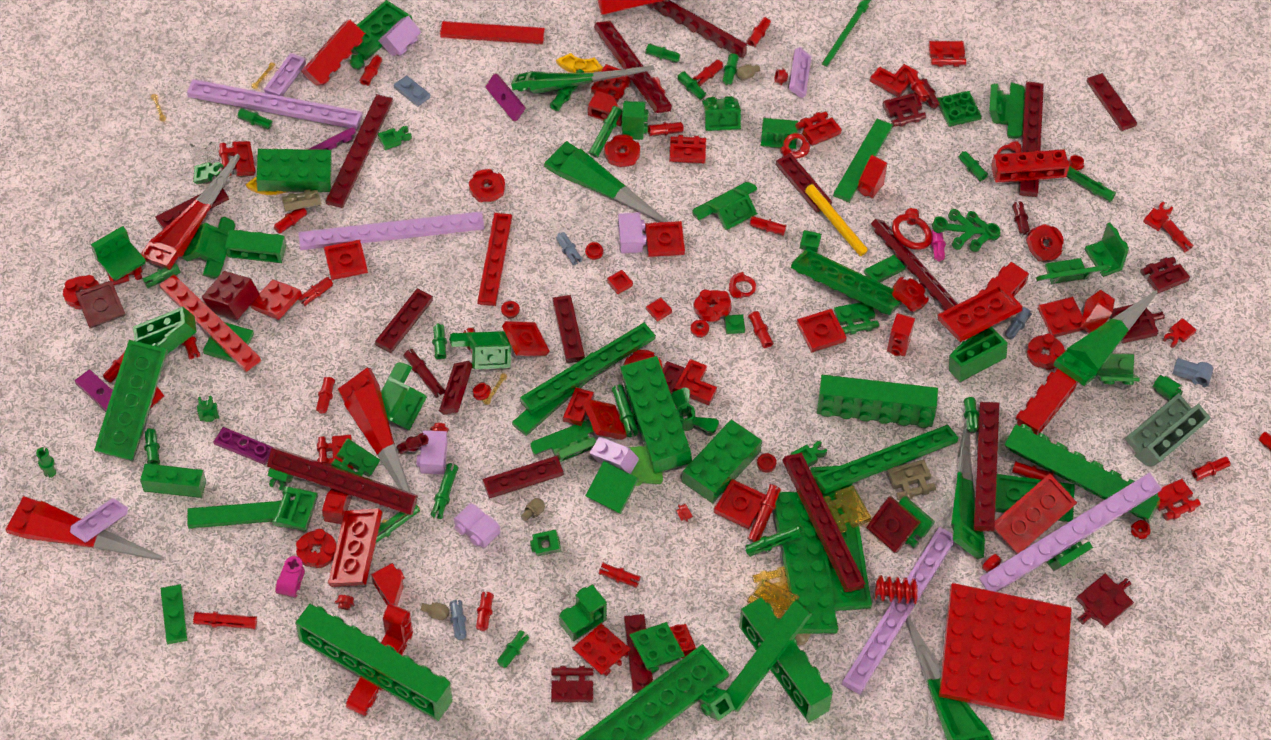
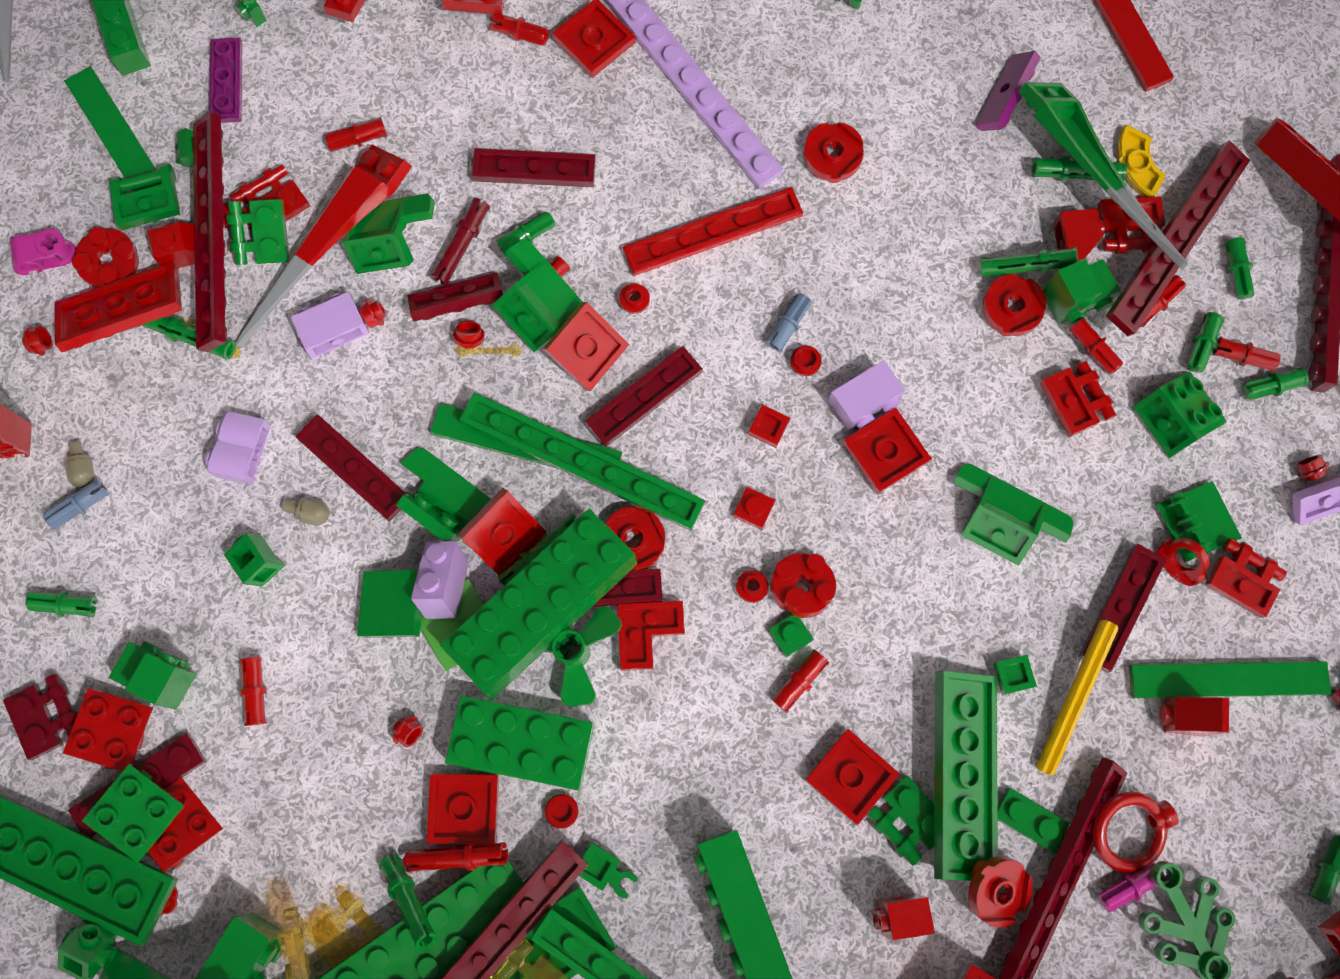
camera: 60 degrees right, 20 degrees up
(389, 583) = (82, 385): red slope -> none
(412, 443) = (321, 290): dark red axle -> none
(442, 497) = (275, 374): green pin -> none
(484, 611) = (104, 532): red axle -> none
(575, 410) = (520, 480): red plate -> none
(582, 169) = (943, 268): green plate -> none
(739, 277) = (879, 596): red piece -> none
(747, 71) = (1288, 411): dark tan cylinder -> none
(769, 226) = (1005, 593): red axle -> none

